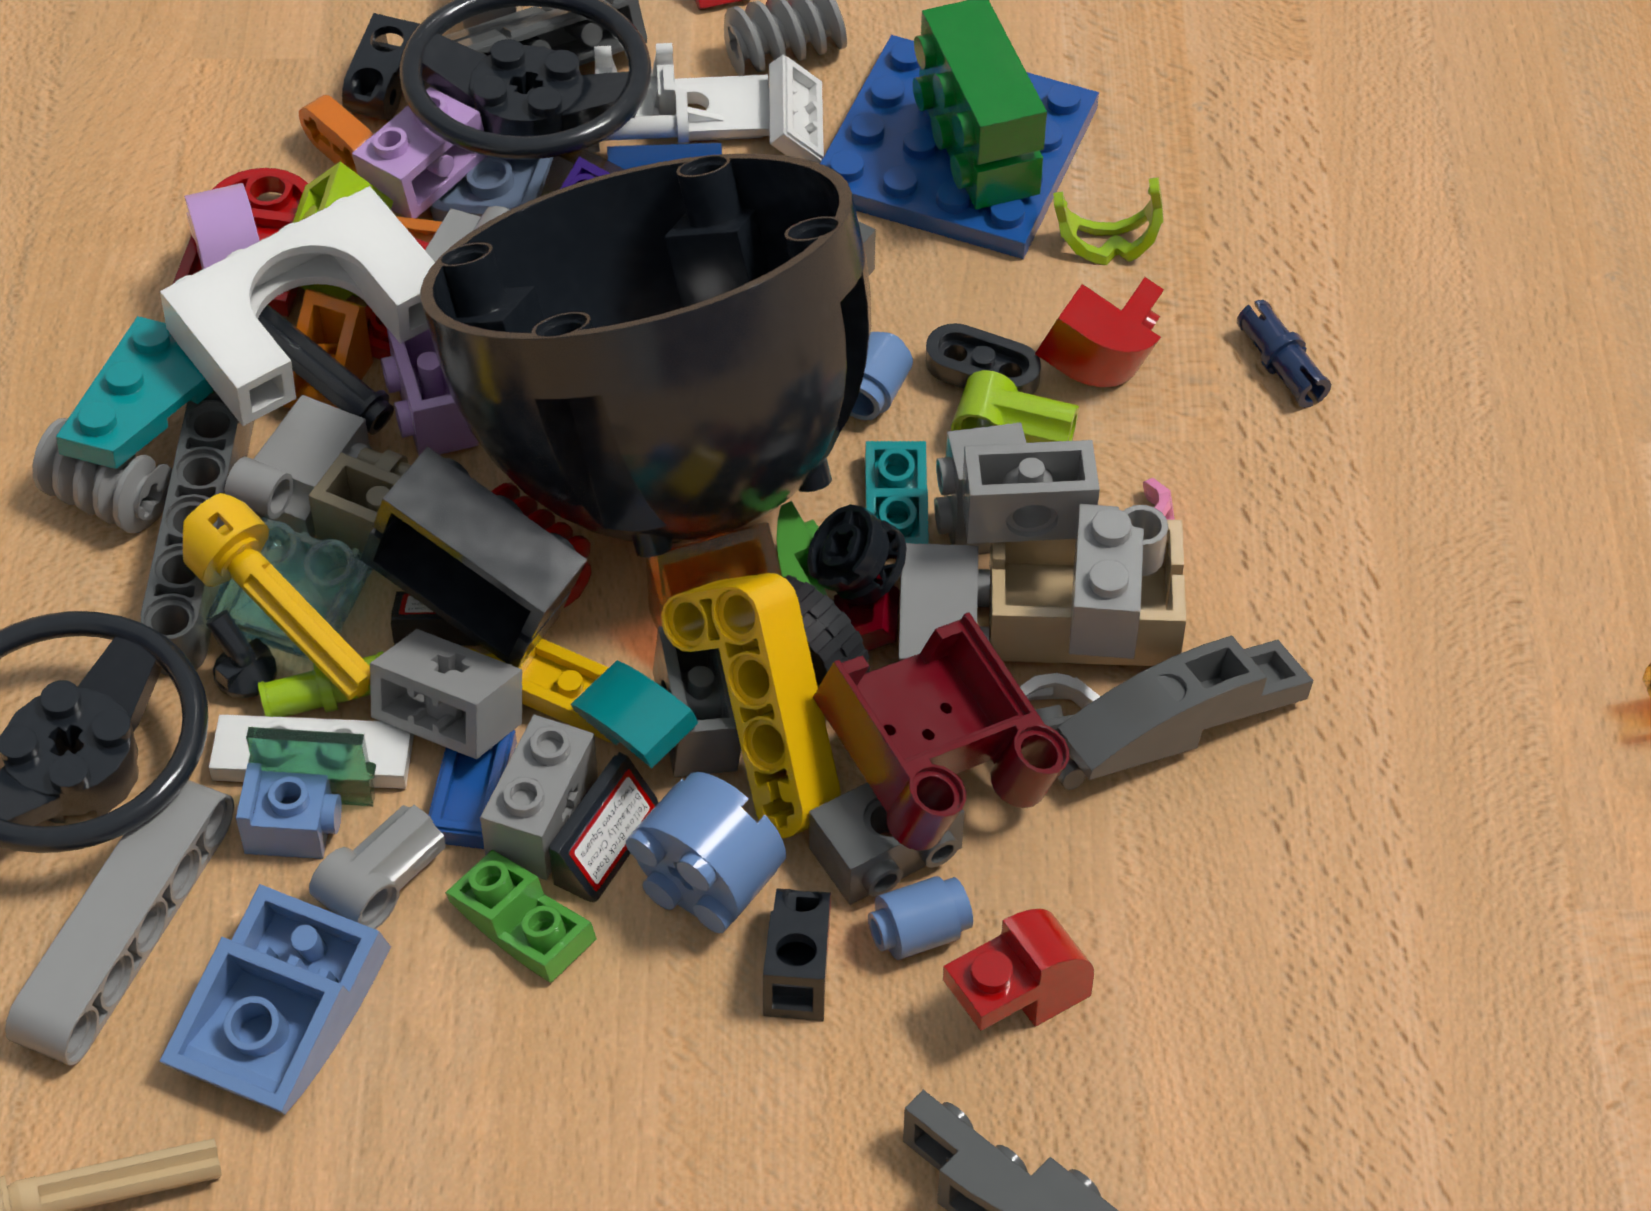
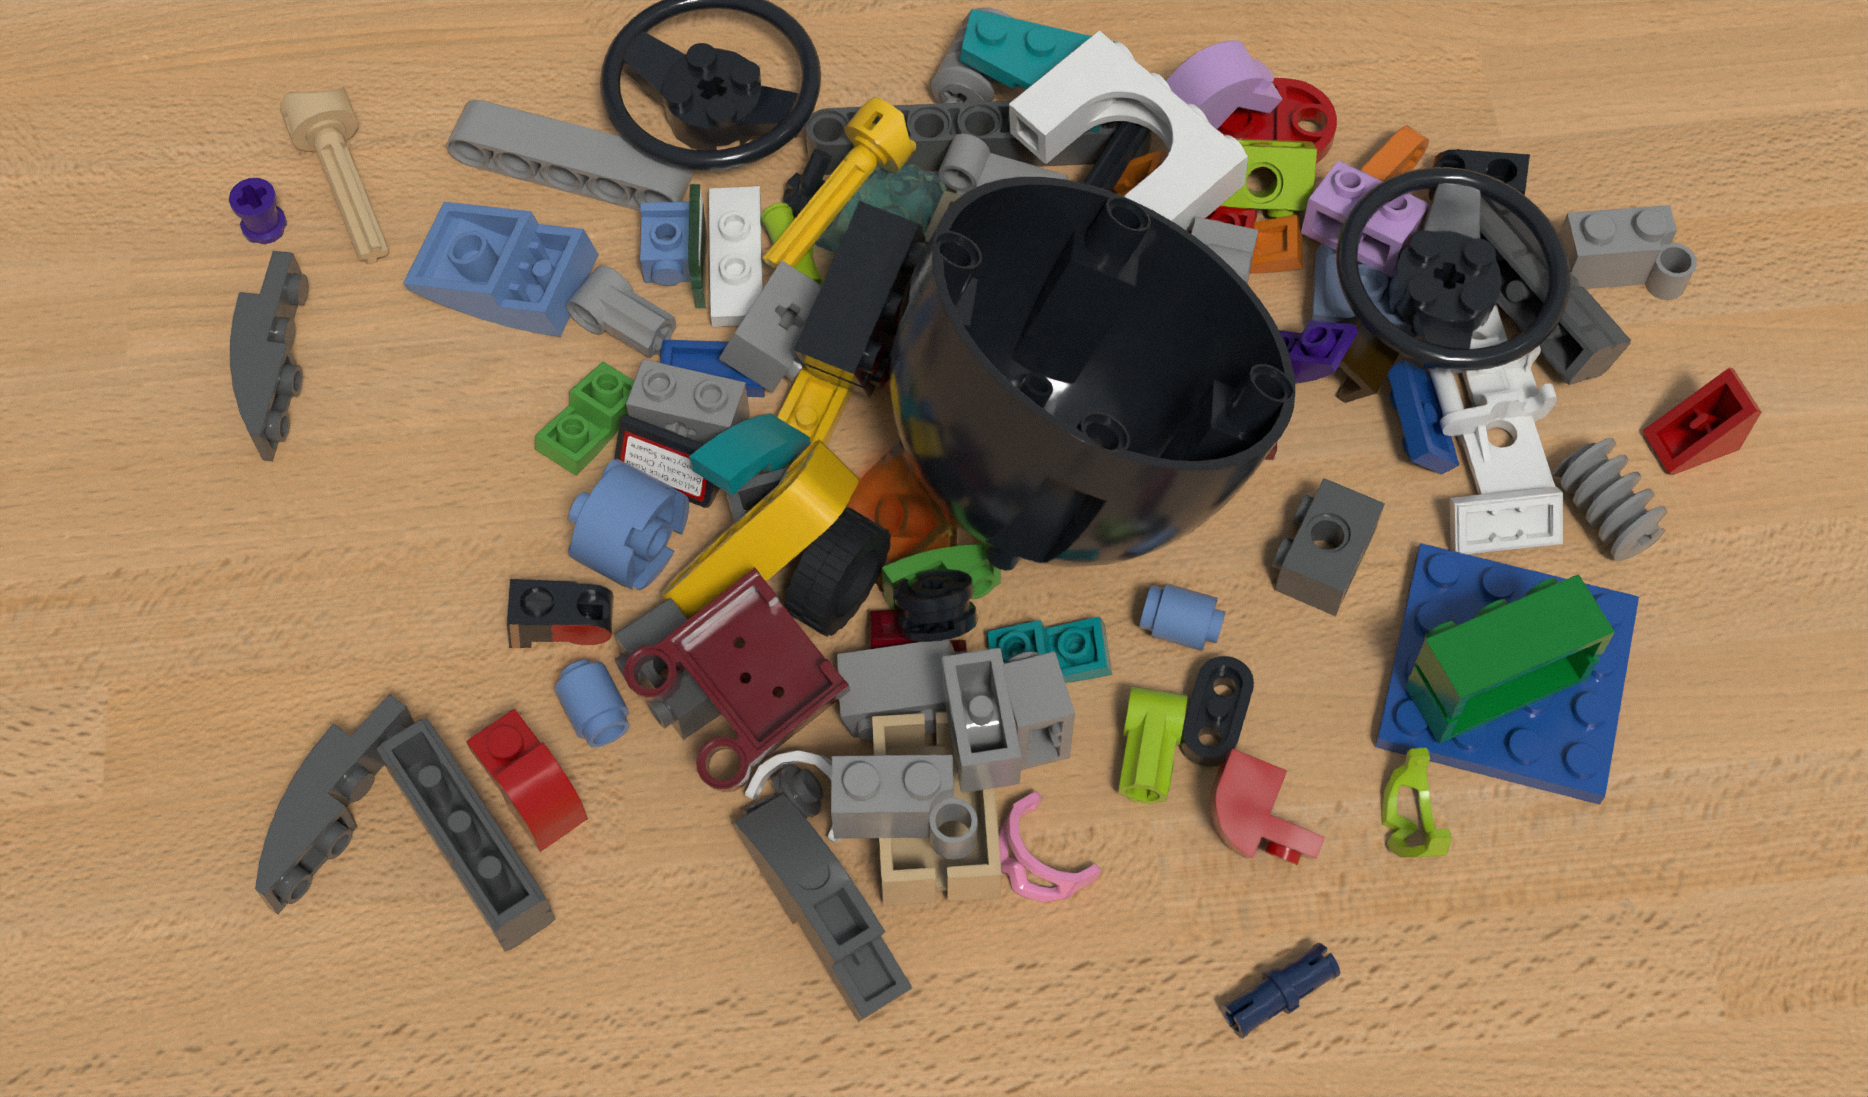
camera: 85 degrees right, 10 degrees up
(1087, 1037) = (466, 834): none -> dark grey brick

